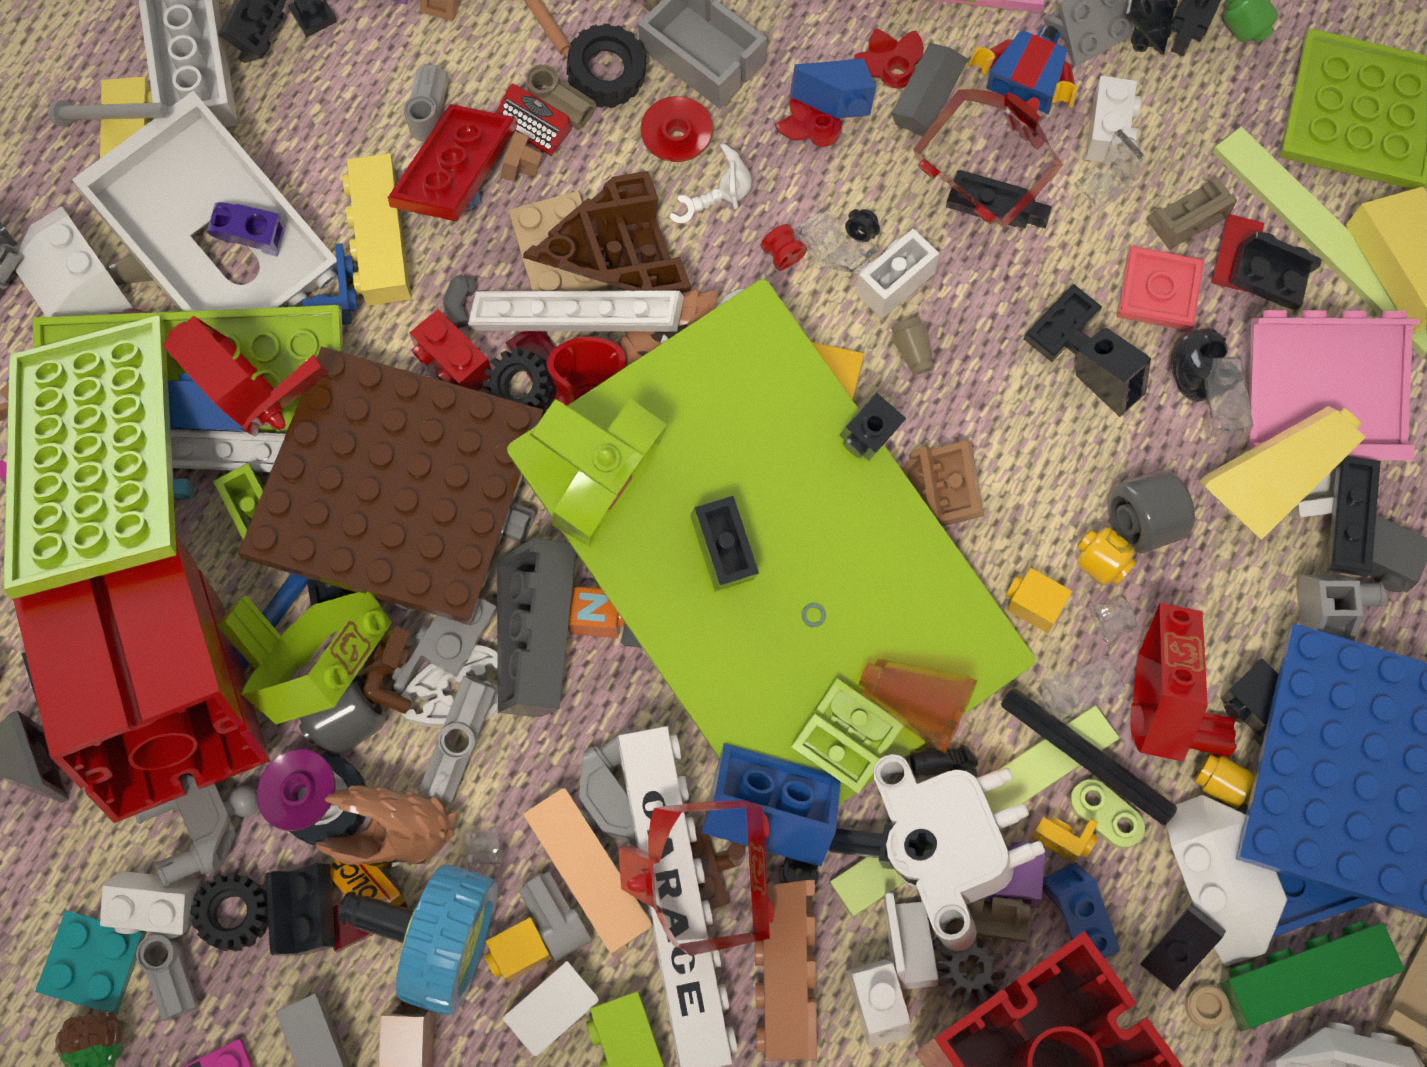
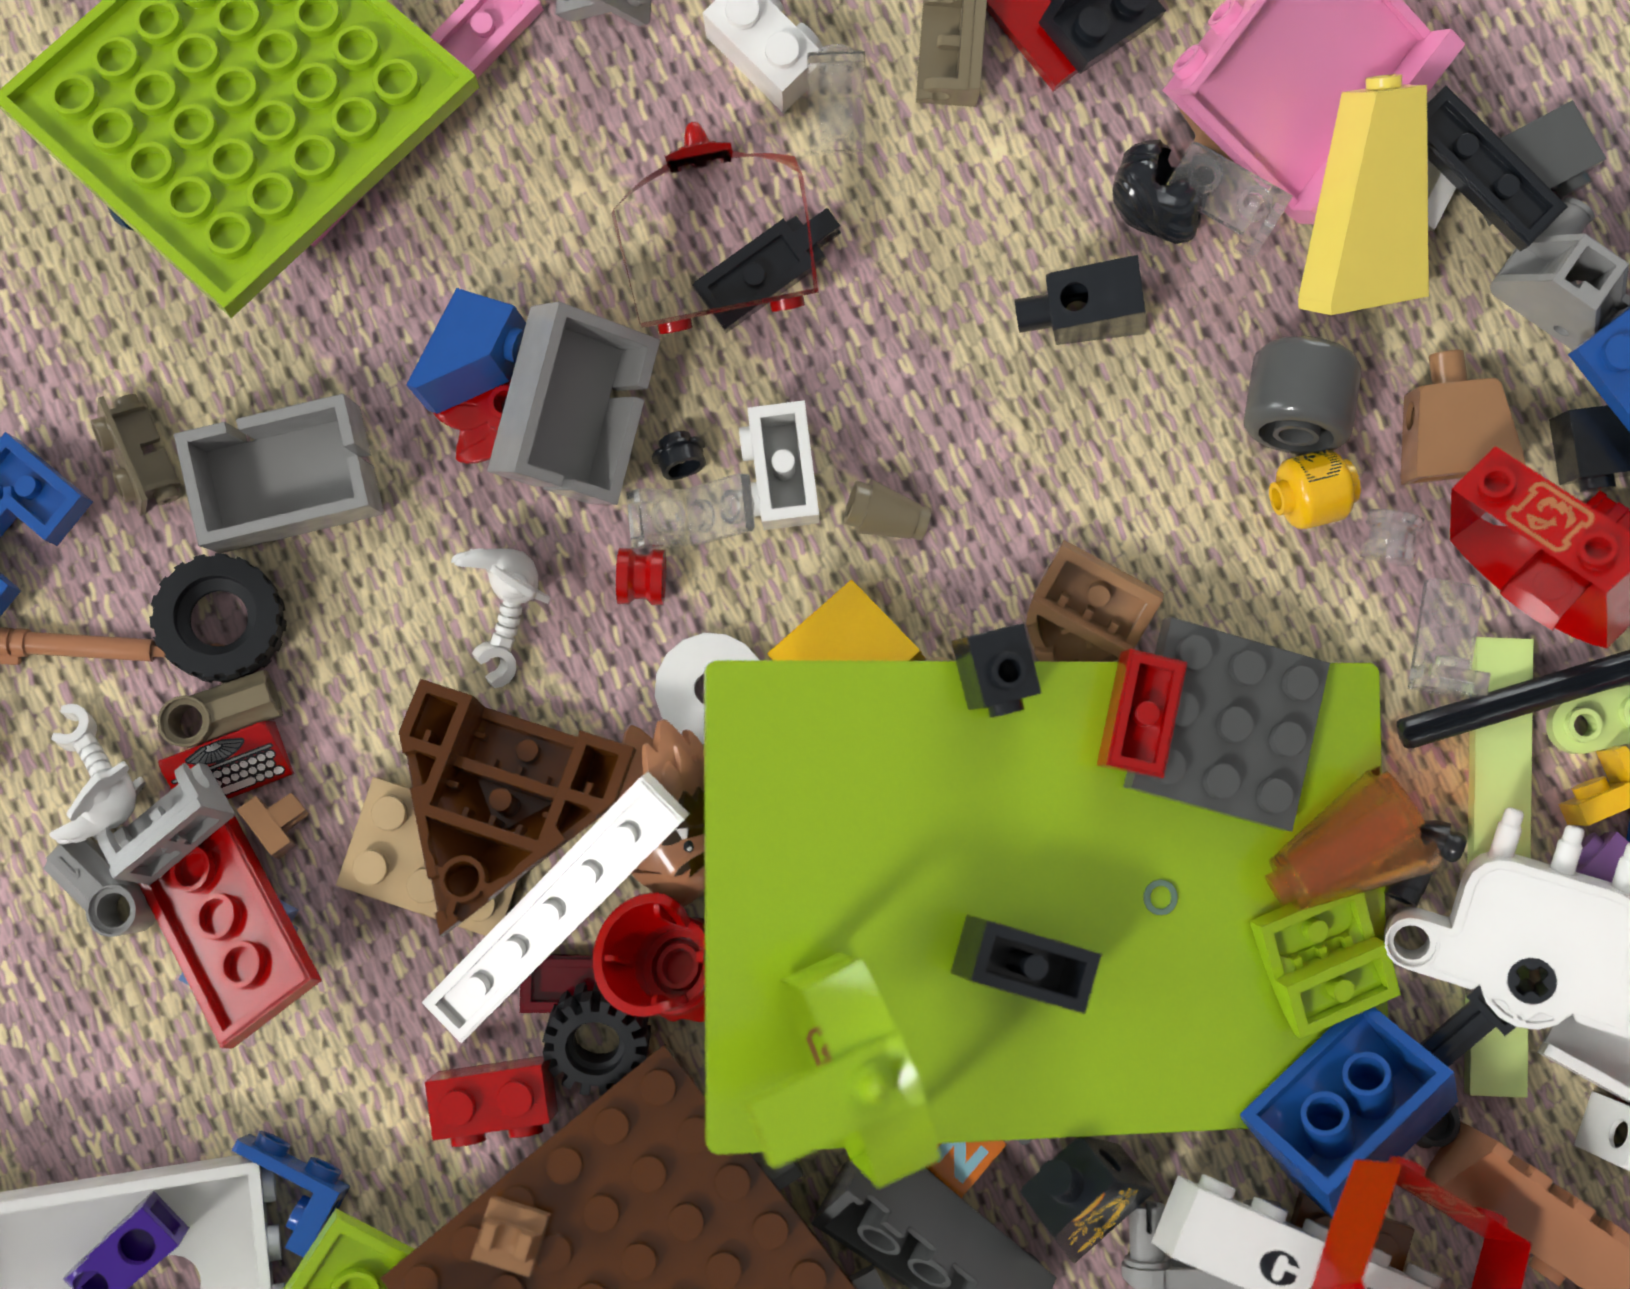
camera: 55 degrees left, 15 degrees up
(377, 229) = (257, 1080): light yellow brick -> none
(389, 389) = (511, 1236): none -> medium nougat tile
(454, 297) = (412, 1036): dark grey arm -> none
(476, 67) = (107, 796): none -> white piece
(481, 109) = (168, 827): none -> light grey hinge
(617, 687) = (1083, 1195): none -> black torso
(674, 115) = (350, 585): red dish -> none
(844, 146) = (558, 410): none -> light grey piece
(889, 54) = (463, 243): red plate -> none
(906, 525) = (1142, 713): none -> red slope
(928, 88) = (552, 231): dark grey piece -> none
(936, 587) = (1238, 725): none -> dark grey plate
(1029, 68) = (621, 87): torso -> none
(1037, 599) = (1310, 609): yellow brick -> none
(1069, 313) = (984, 310): black plate -> none
(1160, 288) = (1023, 158): coral plate -> none
(1216, 599) = (1454, 423): none -> medium nougat torso

